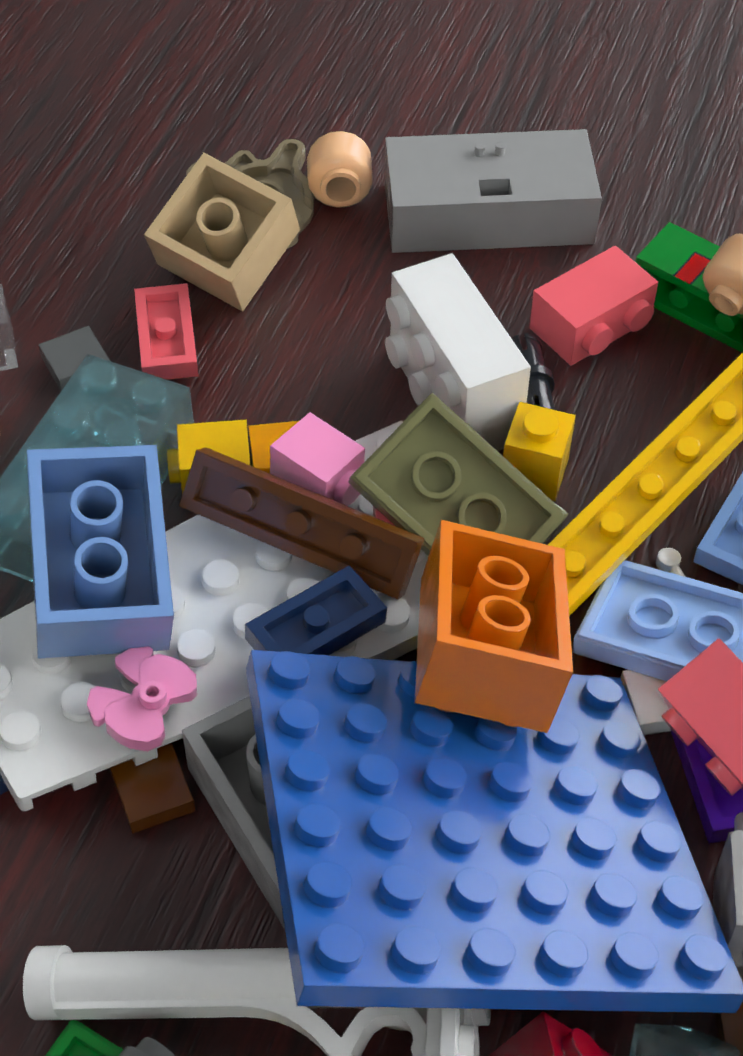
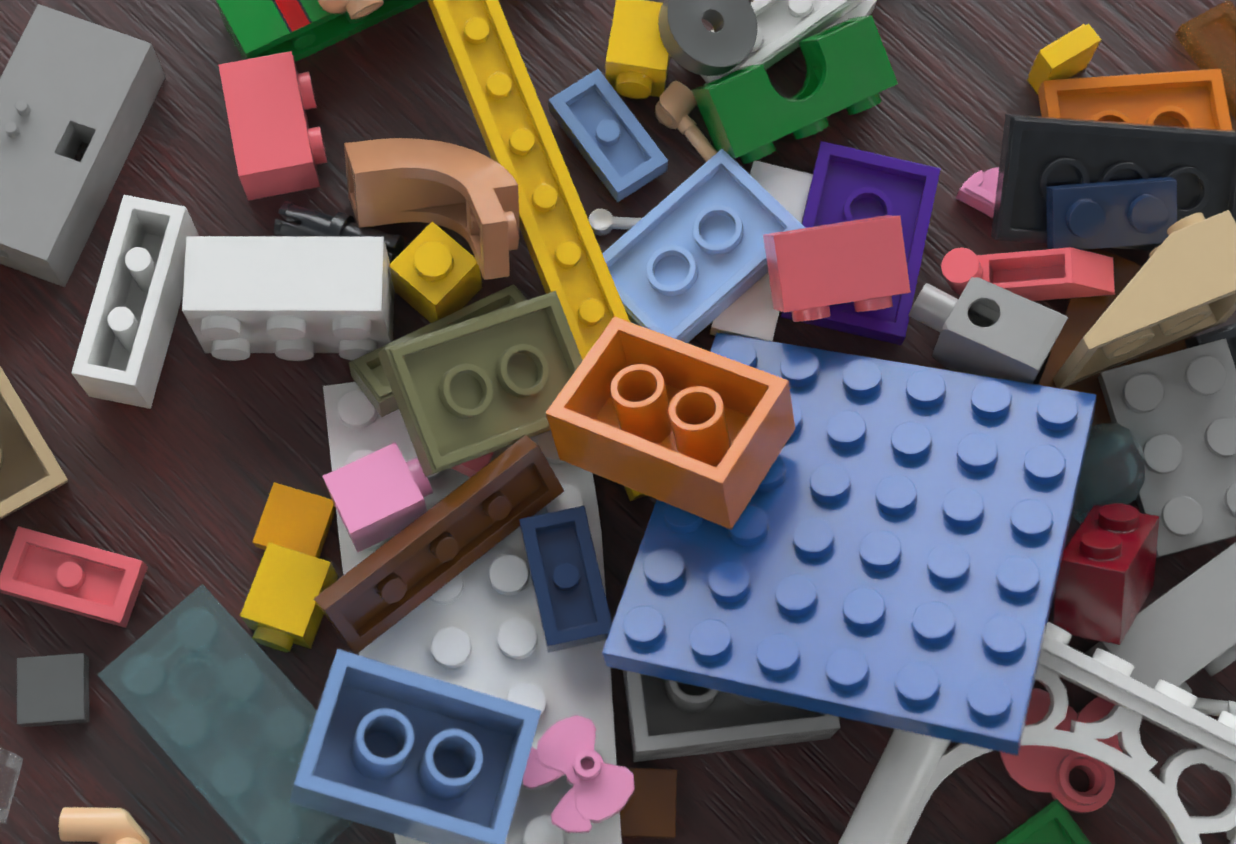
camera: 70 degrees left, 20 degrees up
(356, 275) = (135, 303): none -> white brick
(611, 414) = (441, 184): none -> nougat arch

